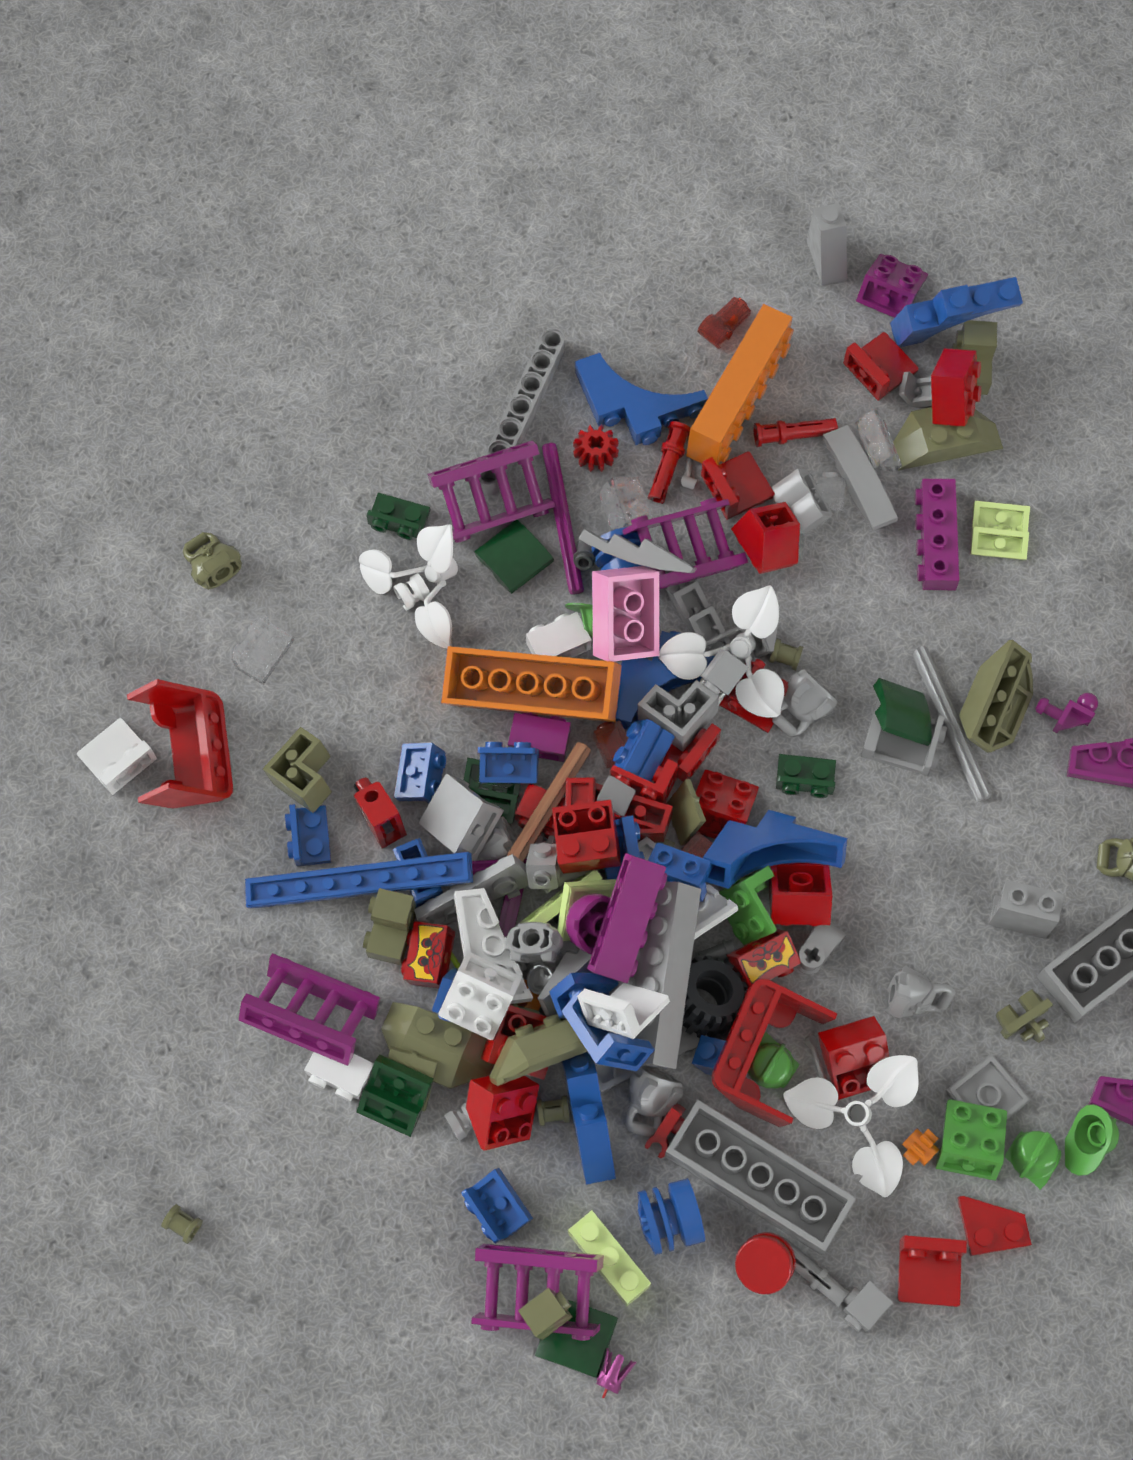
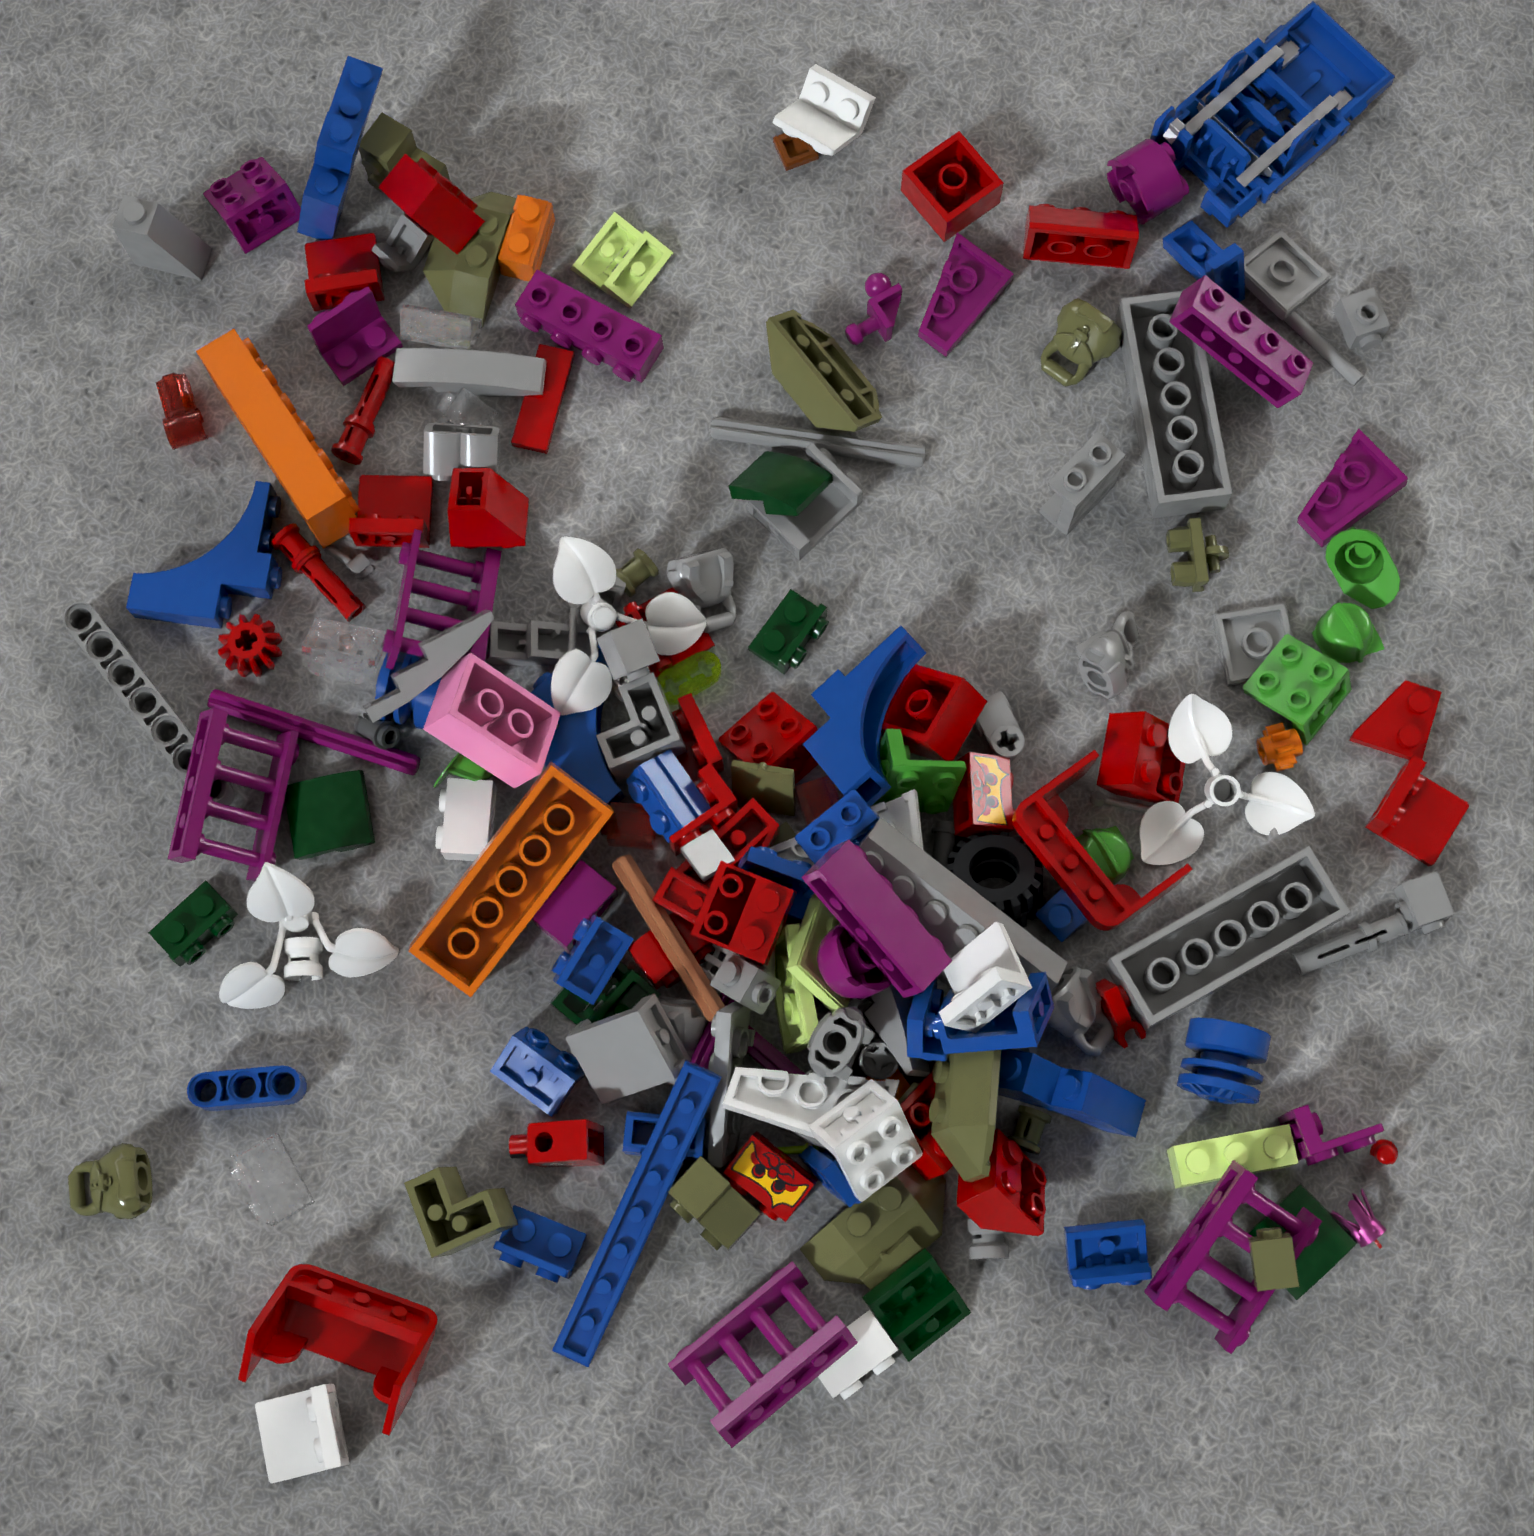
camera: 60 degrees left, 5 degrees up
(309, 592) = (229, 1083): none -> blue beam
(652, 1298) = (1306, 1133): none -> magenta bracket
(673, 1368) = (1384, 1151): none -> red piece
(739, 721) = (685, 669): none -> clear neon green beam
(765, 1263) = (1324, 985): red head -> none
(839, 393) = (353, 336): none -> magenta bracket
(860, 536) = (540, 412): none -> red tile
(975, 461) = (526, 238): none -> orange brick

